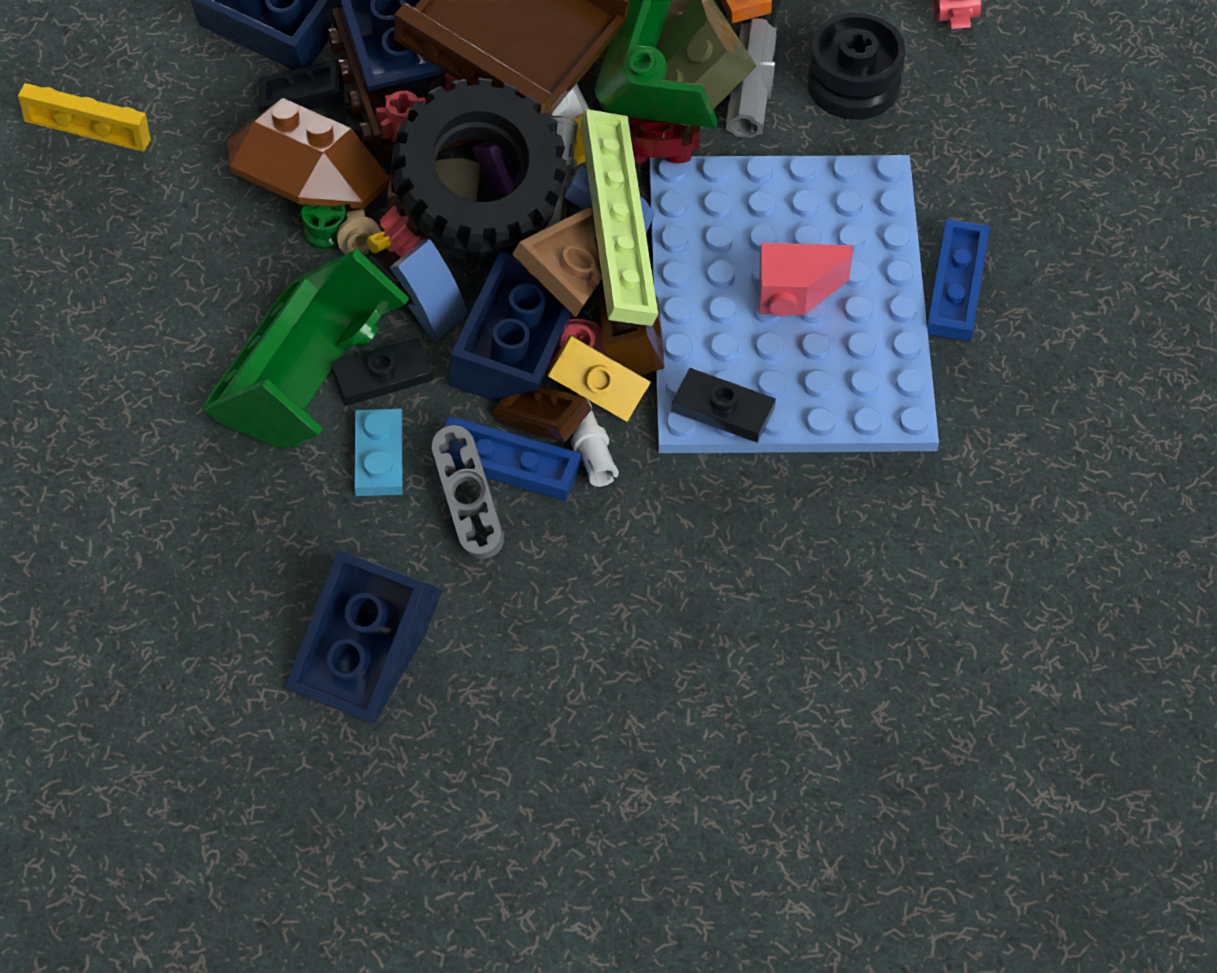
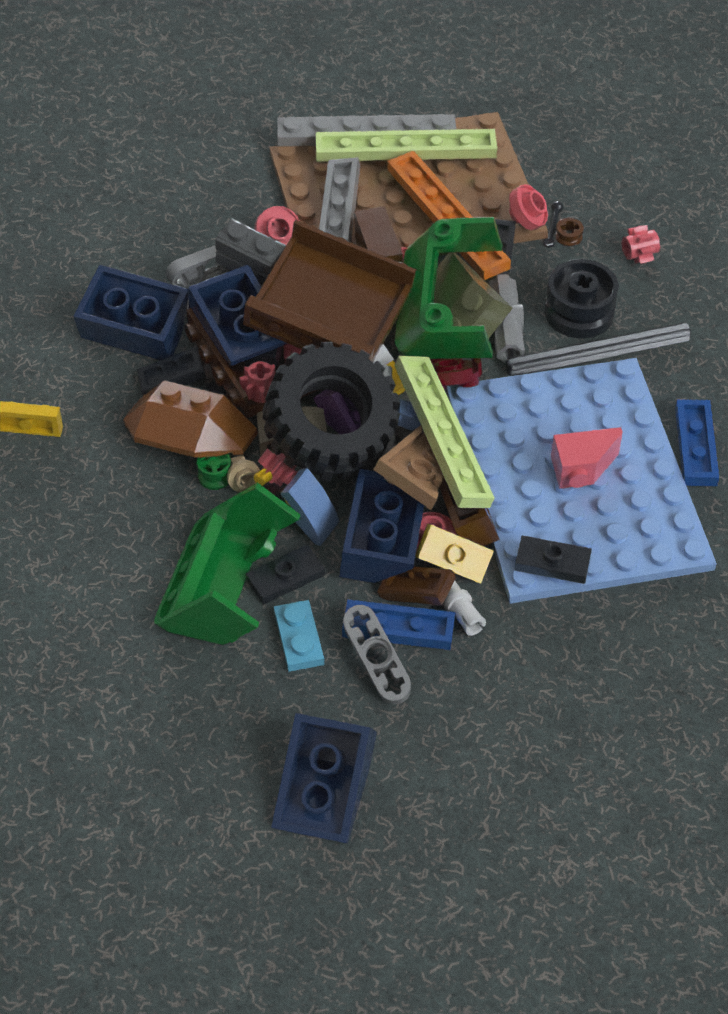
camera: 10 degrees left, 5 degrees down
(864, 137) = (598, 349): none -> axle

